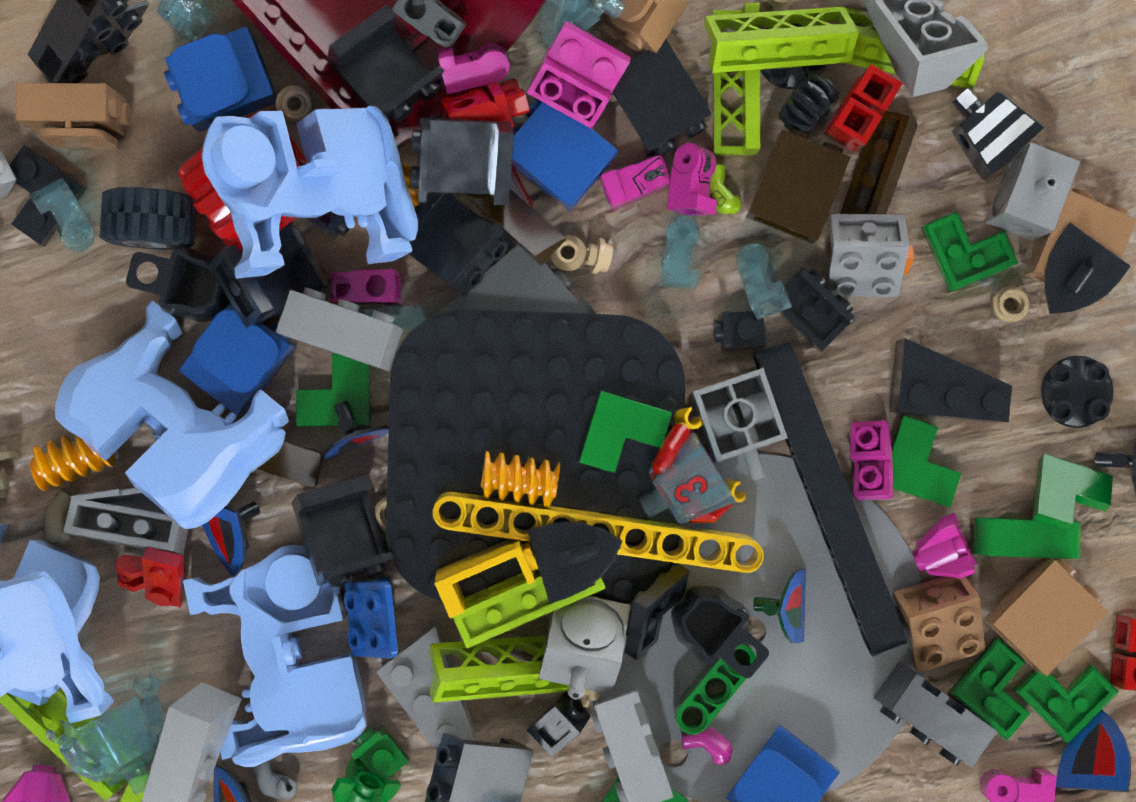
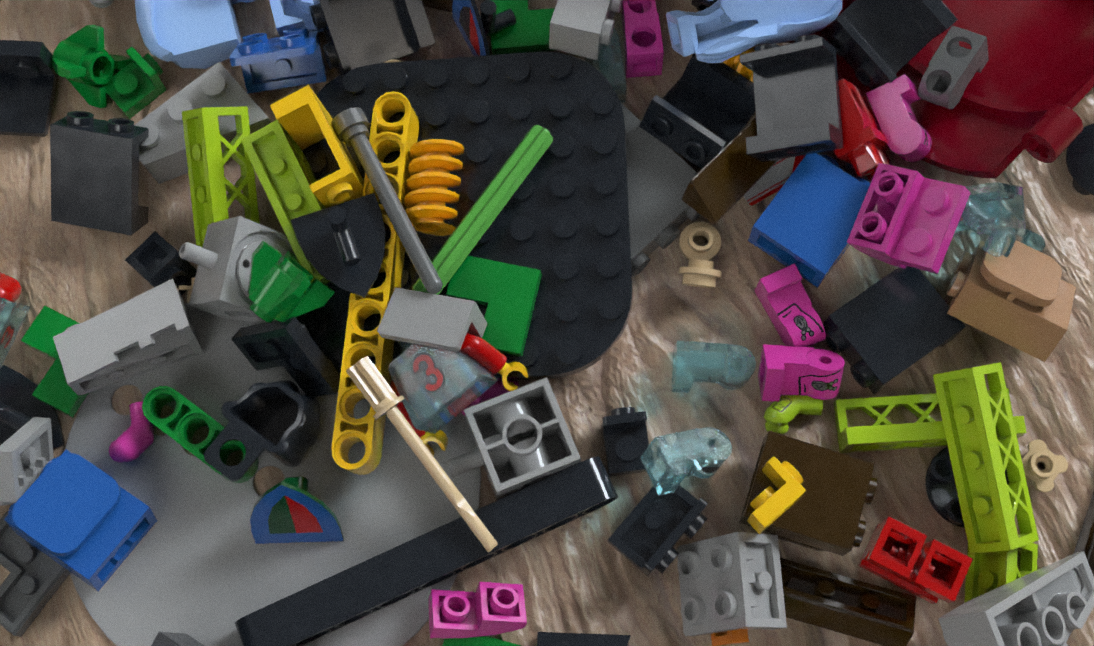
camera: 90 degrees right, 15 degrees down
(470, 546) = (352, 128): none -> dark grey piece
(546, 436) = (489, 205): none -> bright green axle
(609, 609) = (283, 287): none -> green brick
(646, 486) = (431, 319): none -> light grey panel
(715, 524) = (383, 402): none -> tan piece
(809, 104) = (910, 500): black gear -> none
(816, 214) = (772, 504): none -> yellow bracket

